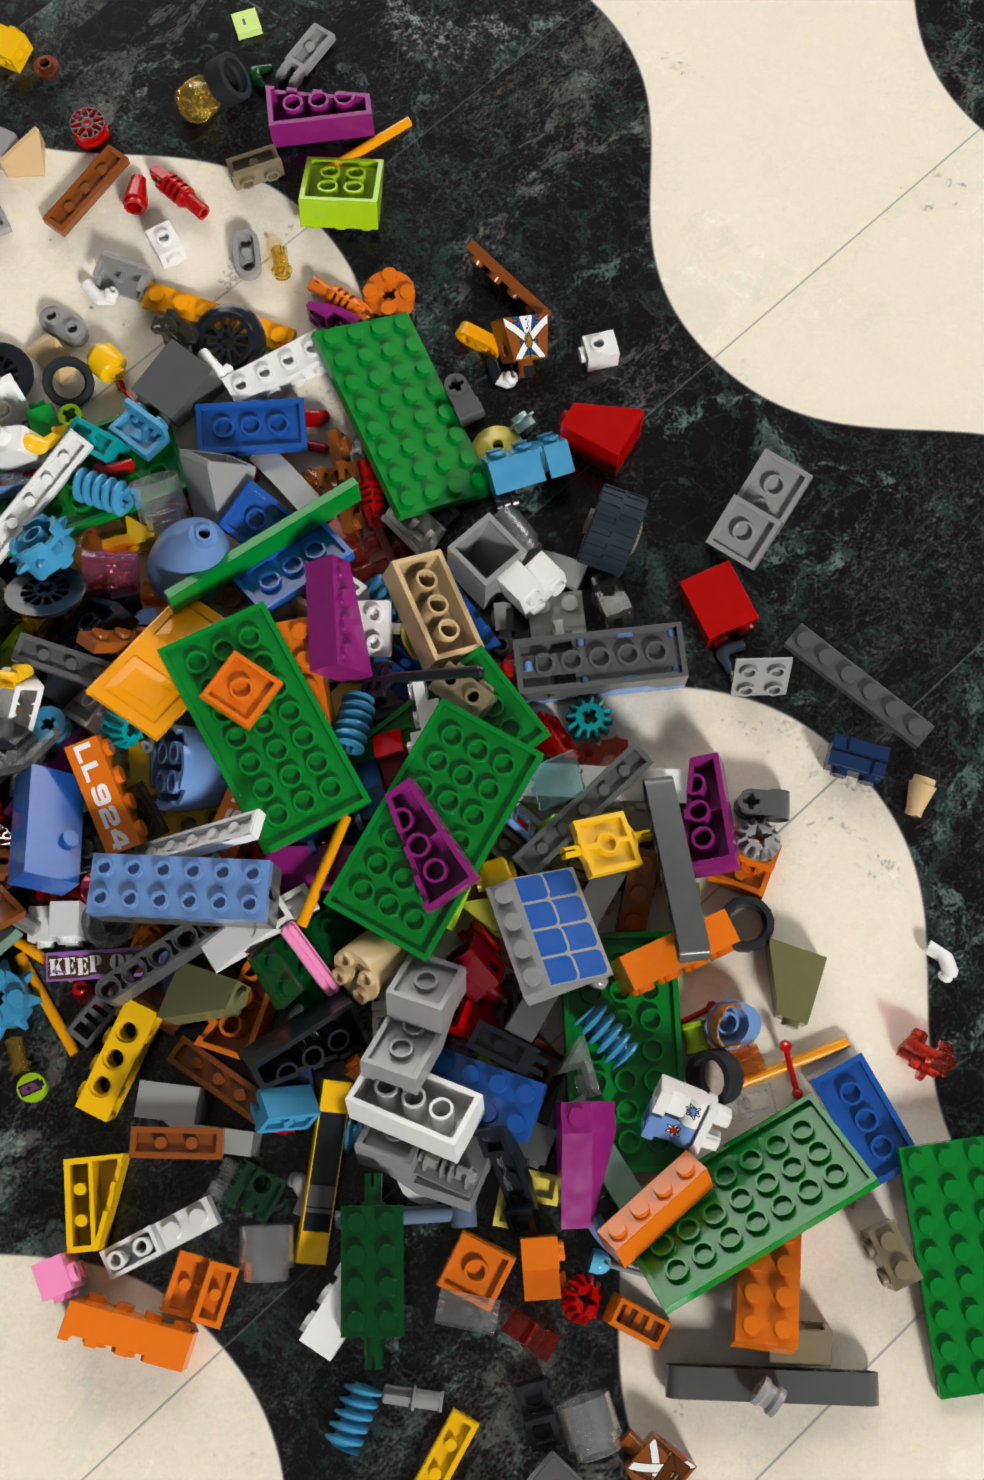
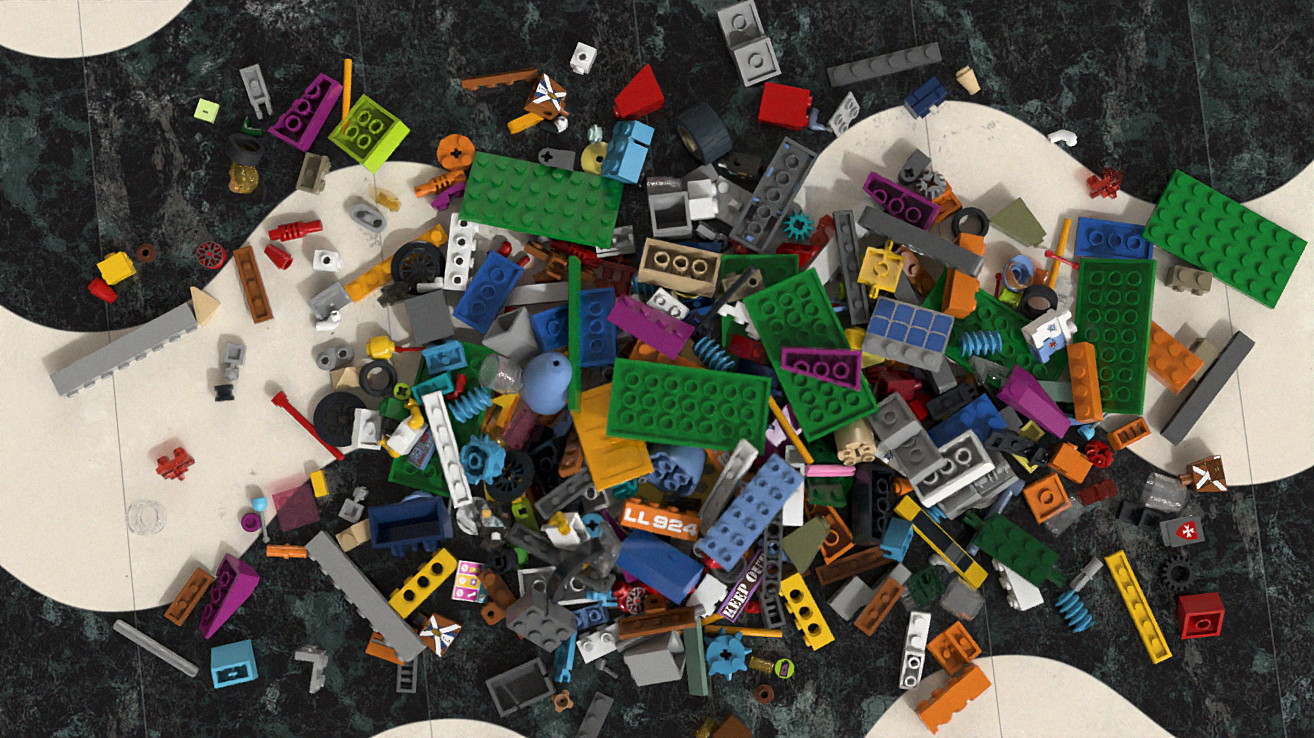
camera: 60 degrees left, 10 degrees up
(60, 1277) = (899, 715): bright pink brick -> none
(92, 1199) = (868, 672): yellow wedge -> none
(241, 690) = (663, 404): orange plate -> none
(558, 780) = (827, 267): clear light blue piece -> none
(768, 1396) = (1213, 394): light grey wheel -> none

